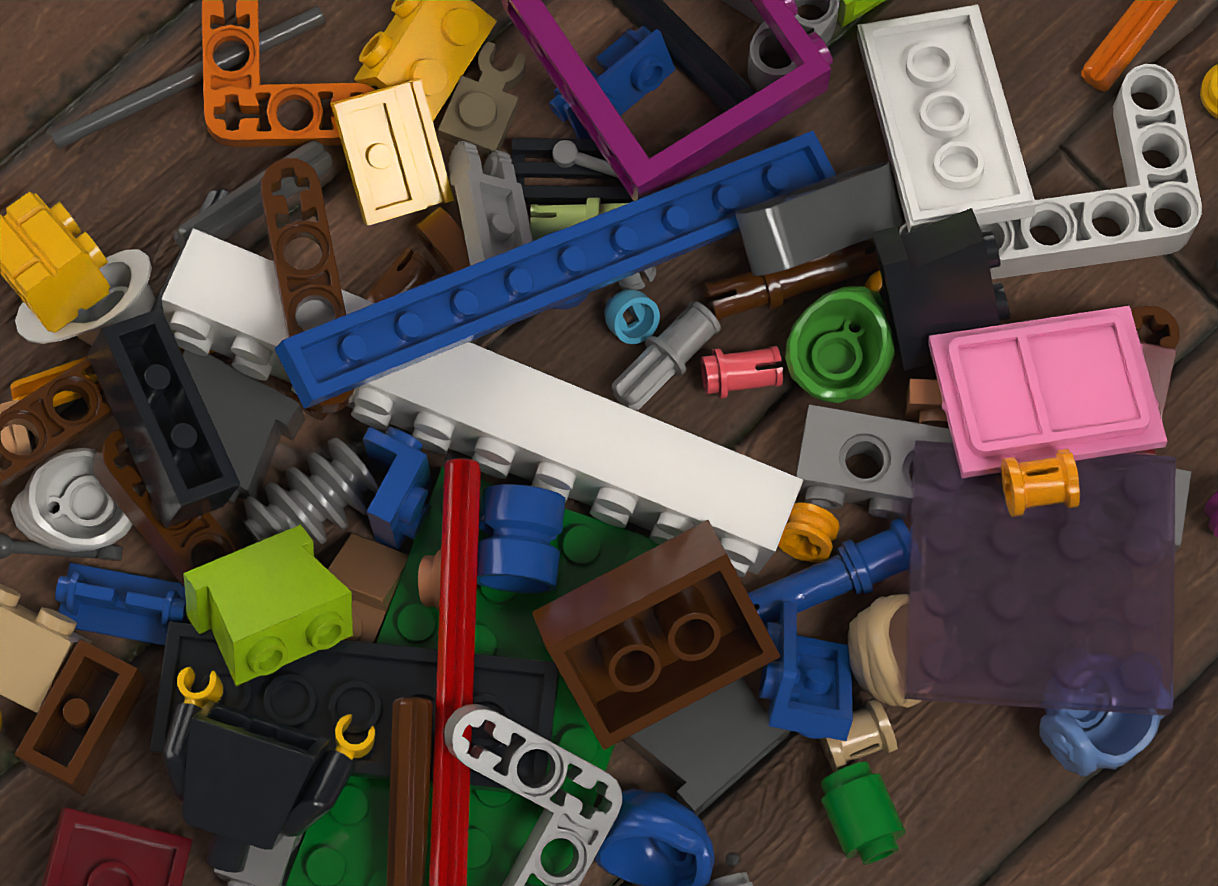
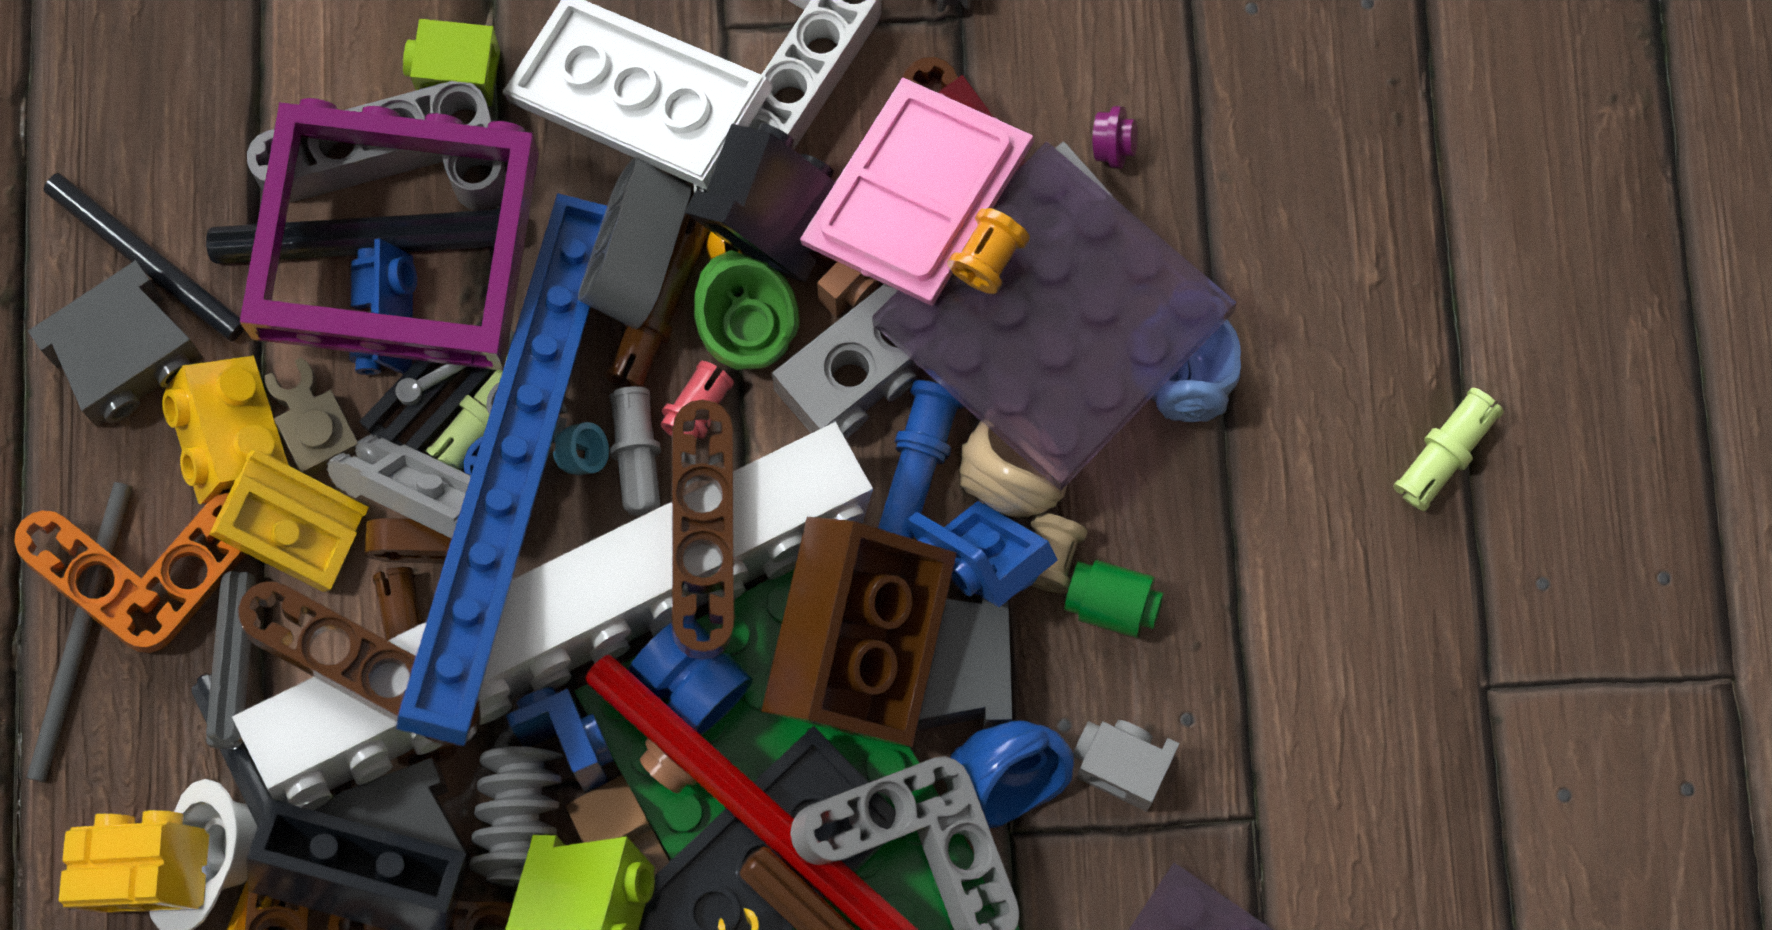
camera: 50 degrees left, 0 degrees up
(625, 444) = (698, 528): none -> reddish brown beam
(809, 533) = (873, 454): light orange bush -> none

